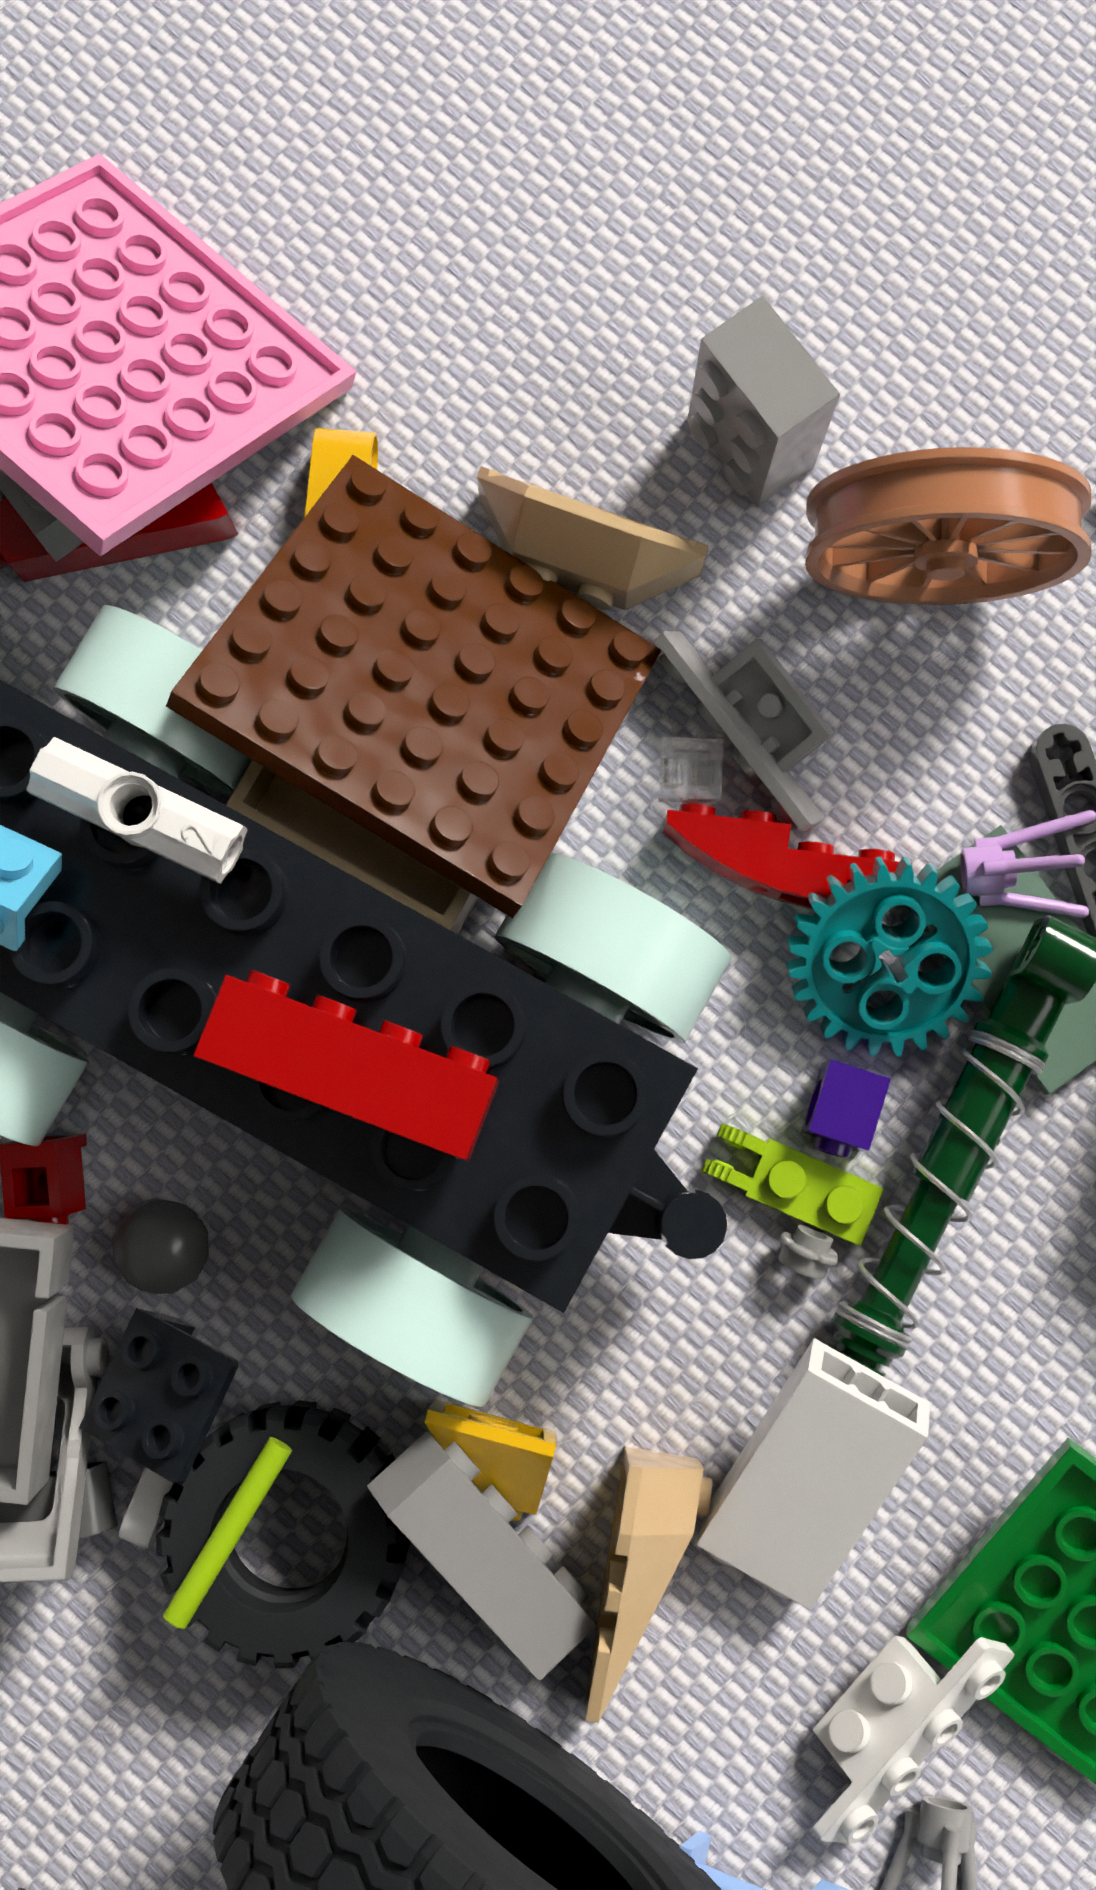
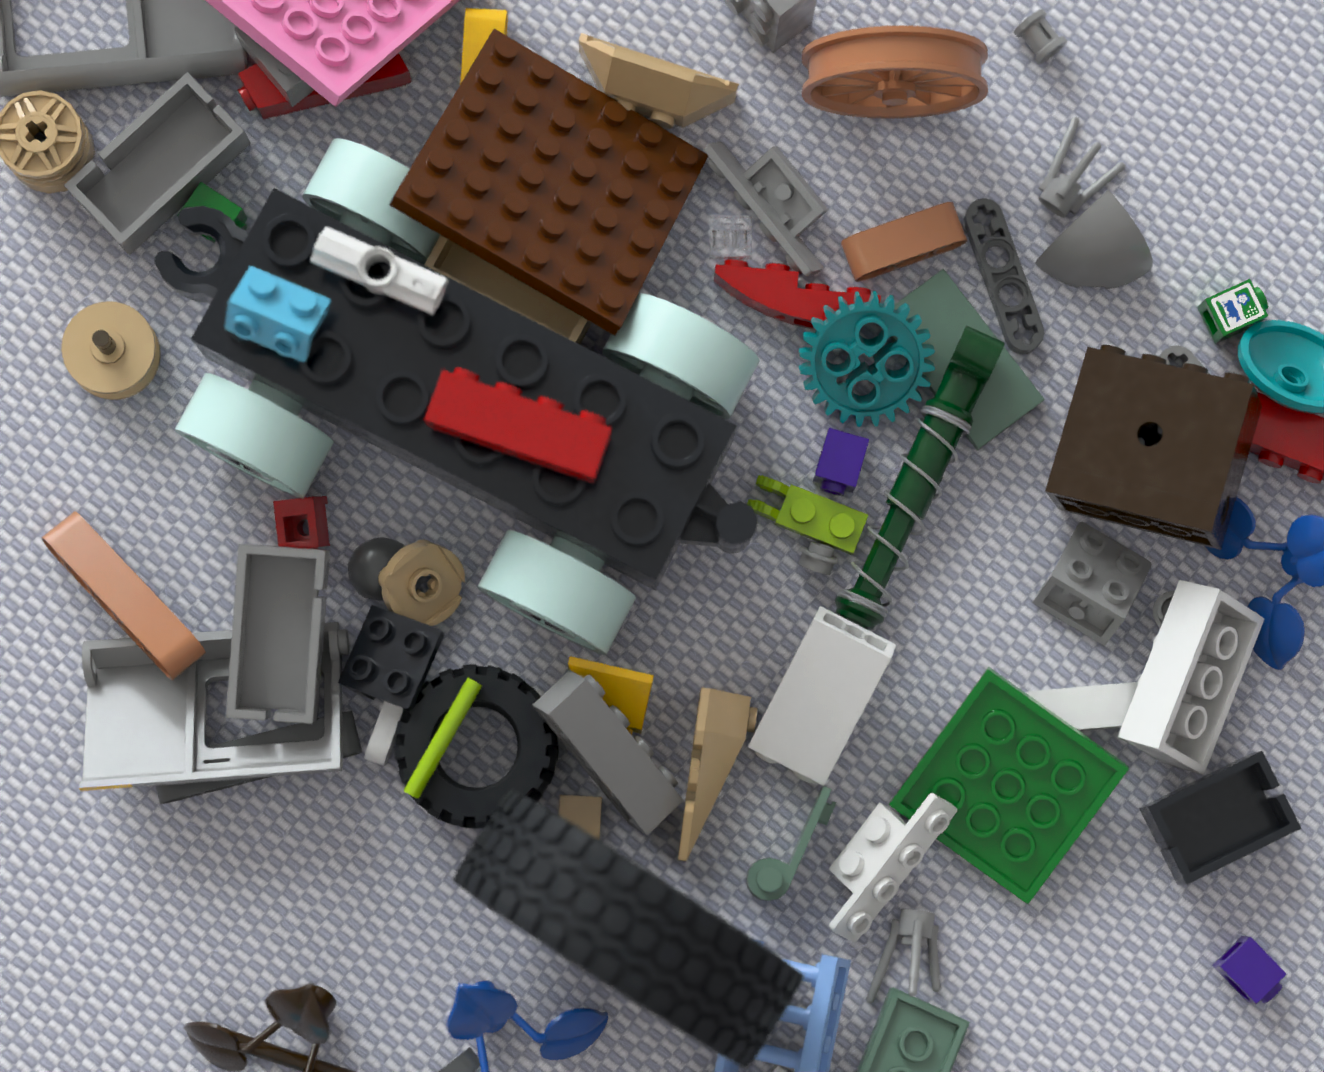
camera: 10 degrees left, 0 degrees up
(192, 1252) = (404, 570): none -> tan plate
(440, 1633) = (582, 812): none -> tan tile
(729, 1744) = (770, 877): none -> sand green door
(944, 783) = (903, 241): none -> nougat beam
(989, 870) = (934, 298): lavender plant -> none

